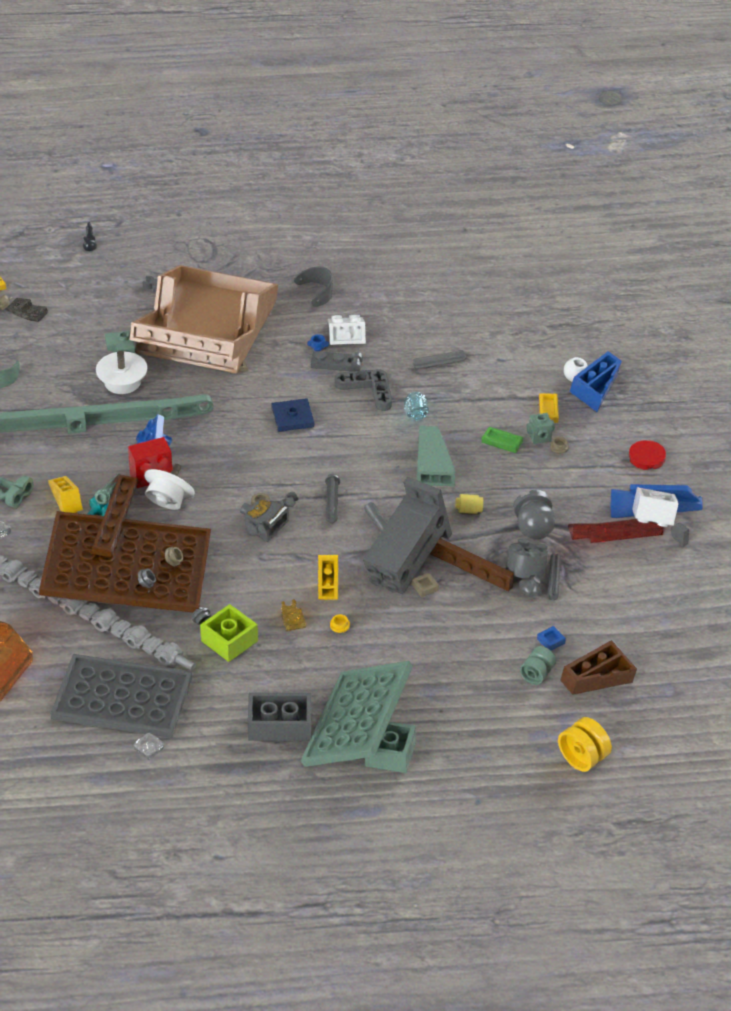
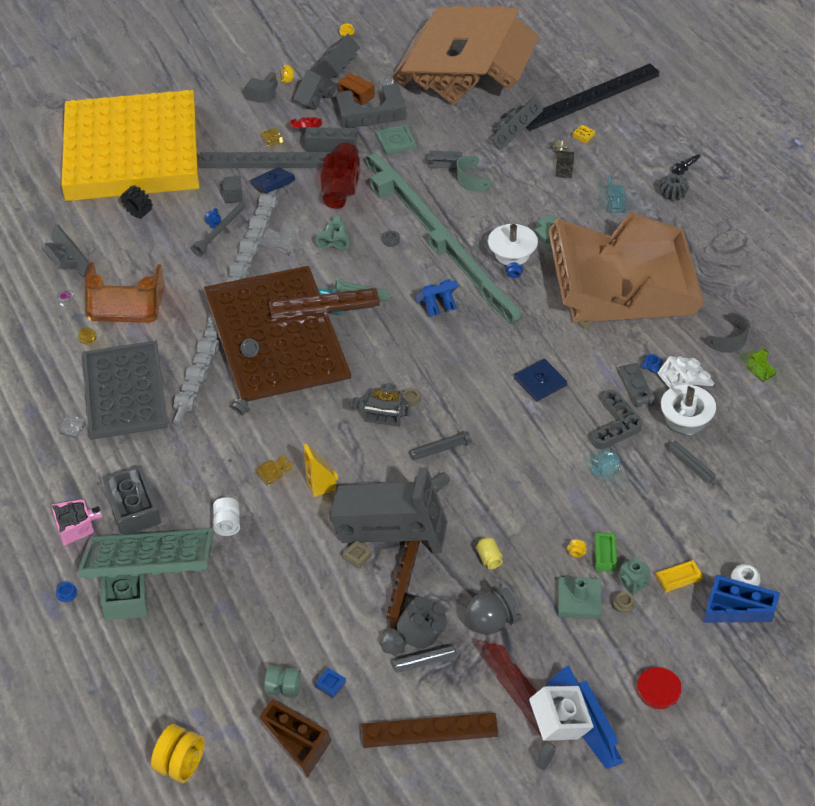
camera: 70 degrees right, 5 degrees up
(24, 708) = (87, 335): none -> clear yellow plate
(41, 454) = (391, 238): none -> dark grey tile
(66, 494) = (344, 267): yellow slope -> none
(97, 293) = (615, 197): none -> clear light blue panel
(115, 253) = (674, 186): none -> dark grey gear
(148, 385) = (514, 270): none -> blue plate
(148, 456) = (405, 302): red brick -> none
(167, 488) = (375, 324): white piece -> none
(173, 556) = (289, 356): dark tan plate -> none
(229, 632) = (221, 430): lime brick -> none
(274, 768) = (74, 520): none -> torso
(333, 656) = (226, 516): none -> white wheel
(339, 623) = (277, 507): yellow plate -> none
(357, 793) = (66, 592): none -> blue plate
(363, 285) = (759, 366): none -> clear neon green panel
(389, 336) = (687, 408): none -> white piece
(433, 459) = (538, 501): sand green slope -> none
(492, 452) = (577, 548): none -> yellow plate
(540, 468) = (579, 598): none -> sand green tile
(623, 595) = (429, 730): none -> reddish brown plate

